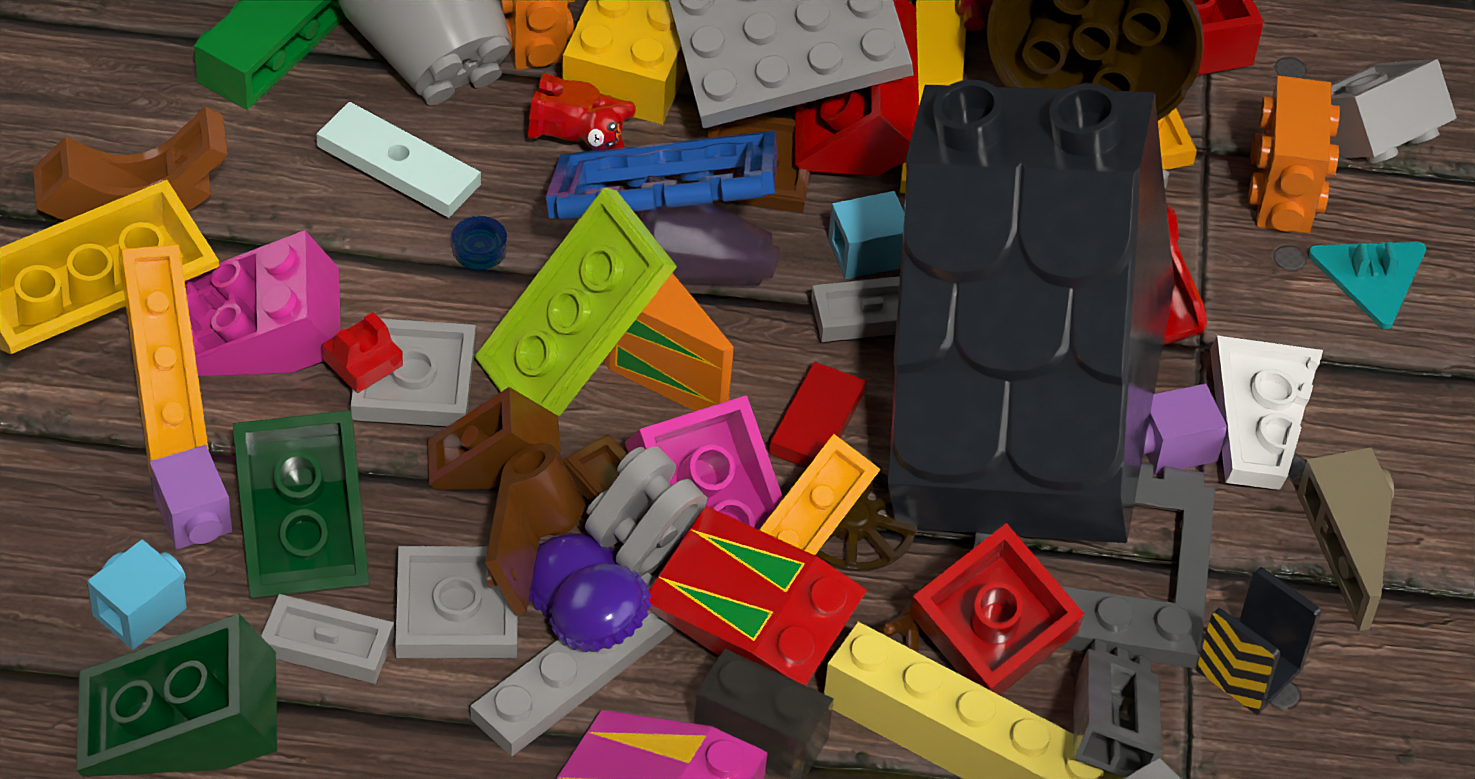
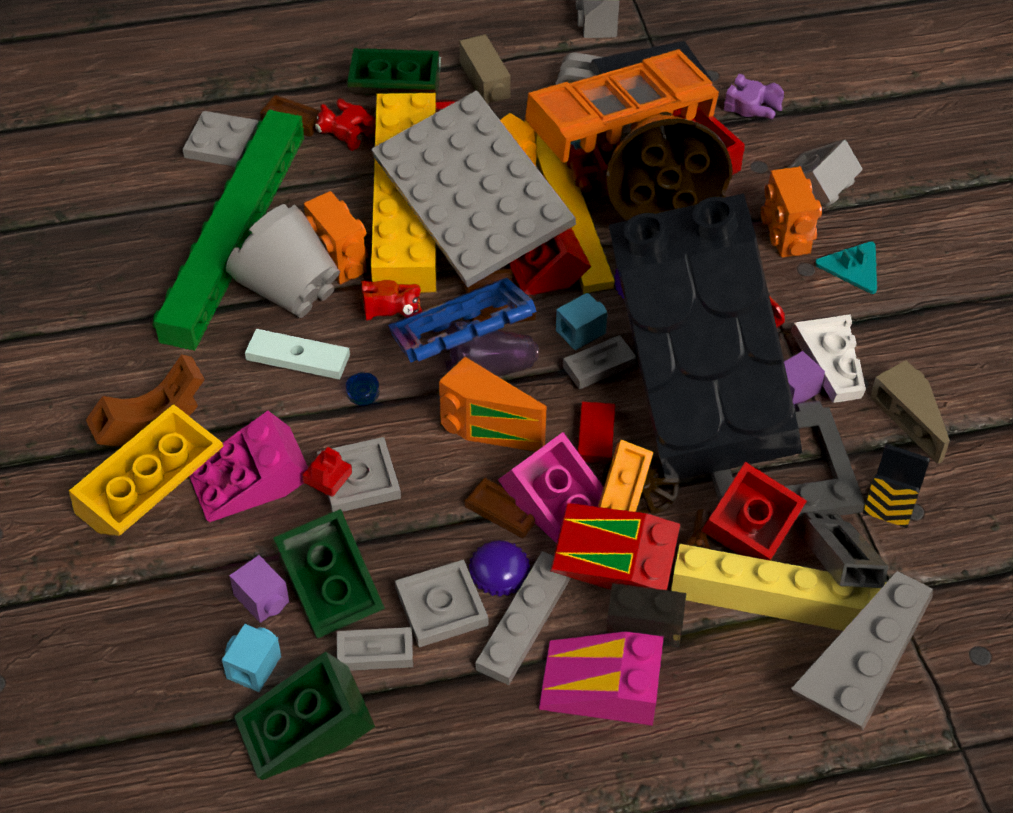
camera: 15 degrees left, 0 degrees up
(162, 350) = (211, 508): light orange plate -> none
(481, 442) = (424, 504): reddish brown slope -> none
(532, 502) = (465, 530): reddish brown door -> none
(577, 305) = (445, 412): lime tile -> none
(599, 607) = (528, 581): dark purple hat -> none
(617, 511) = (513, 522): light grey brick -> none

